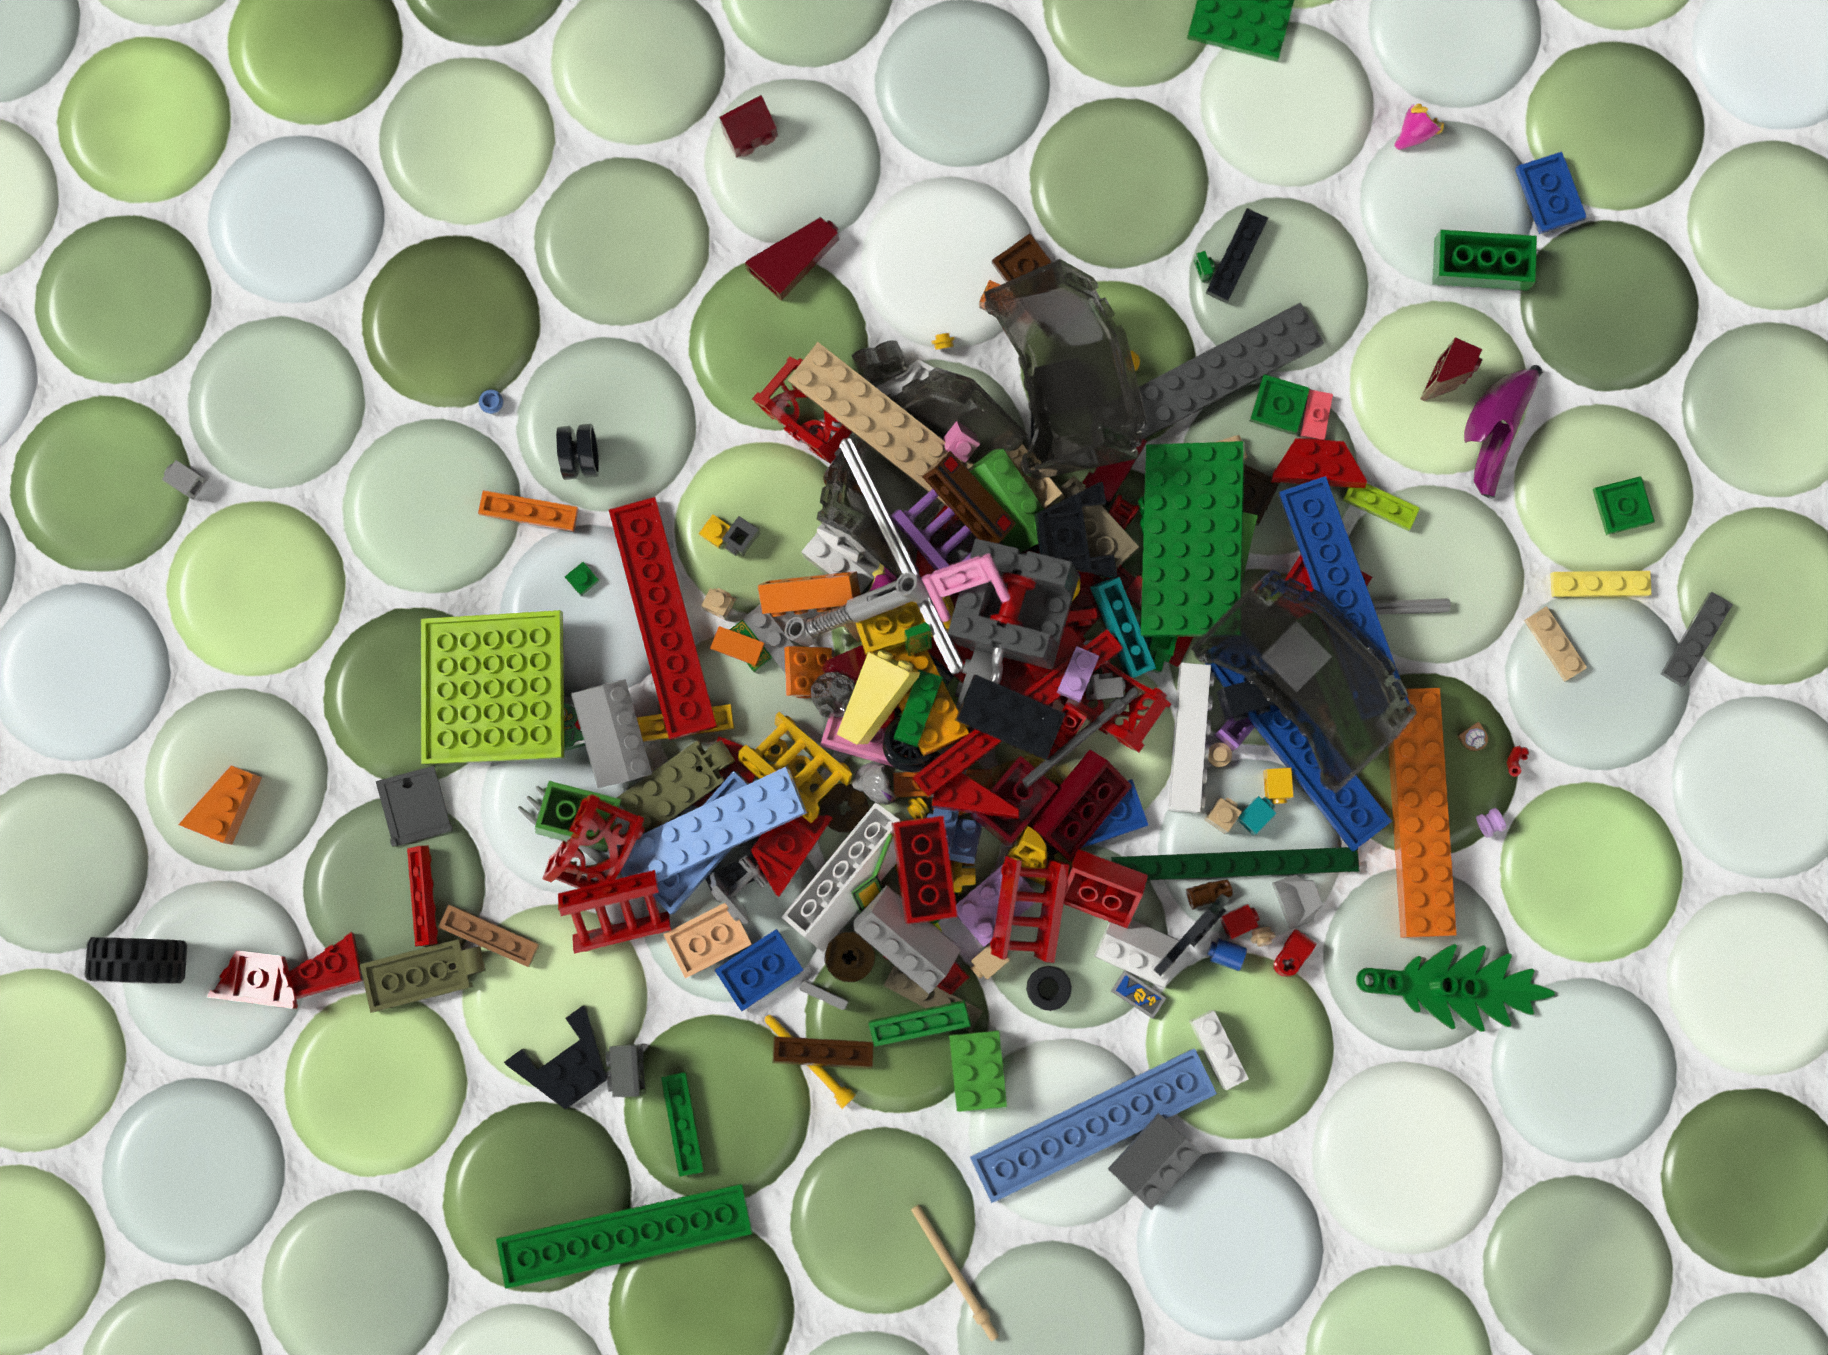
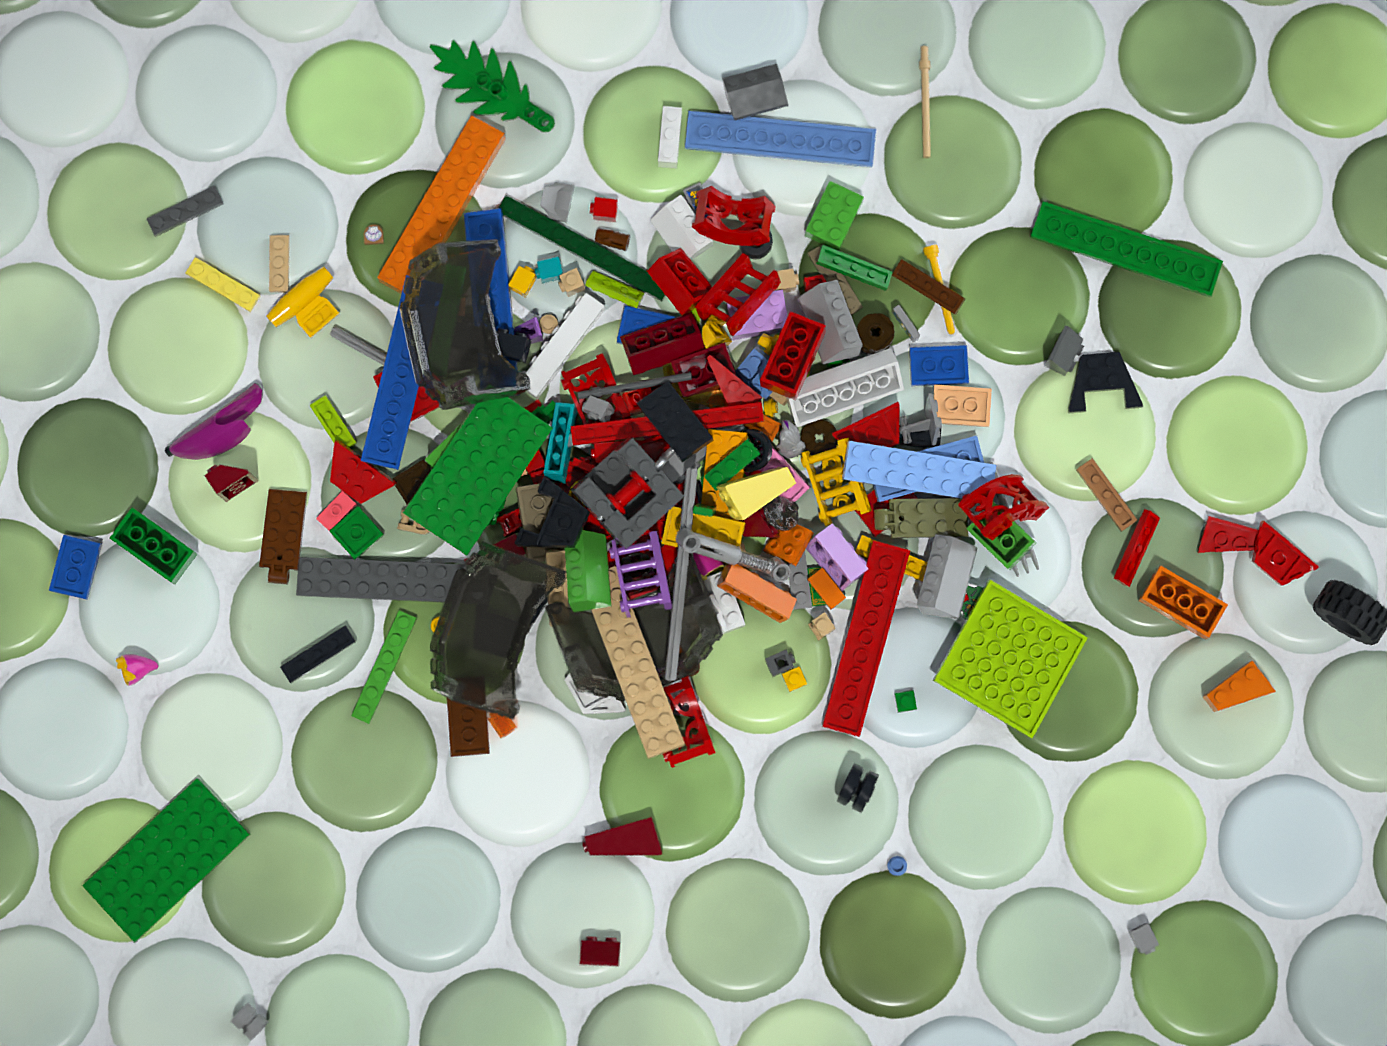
camera: 150 degrees left, 0 degrees up
(336, 863) = (1183, 602): none -> orange brick
(414, 810) = (1109, 609): dark grey container -> none
(420, 974) = (1166, 496): olive hinge -> none
(528, 511) = (915, 770): orange plate -> none
(608, 893) = (1009, 468): red fence -> none
(682, 1124) = (1047, 297): green plate -> none
(744, 683) = (837, 557): none -> lavender brick
(872, 887) = (832, 368): piece -> none
(880, 362) = (611, 727): clear smoke brick -> none
(943, 341) = (558, 716): yellow plate -> none
(961, 441) = (591, 632): bright pink brick -> none
(961, 577) = (651, 524): bright pink plate -> none
(968, 499) = (612, 582): reddish brown brick -> none
(1076, 1023) = (746, 210): none -> red fence
(1078, 674) = (611, 424): lavender plate -> none
(1159, 285) = (384, 667): none -> bright green plate
(1171, 837) = (614, 289): none -> lime plate
(1195, 933) = (633, 216): black wing -> none
(1204, 266) = (345, 659): green plate -> none
(1227, 954) = (625, 193): blue brick -> none
(1262, 936) = (595, 191): tan plate -> none
(1296, 656) = (460, 350): clear tile -> none
(1296, 950) = (580, 168): red piece -> none
(1357, 356) = (283, 533): none -> reddish brown hinge
(1491, 822) = (399, 174): lavender wheel -> none
(1496, 615) = (305, 303): none -> yellow plate
(1518, 753) = (359, 204): red arm -> none
(1623, 505) = (172, 326): green plate -> none

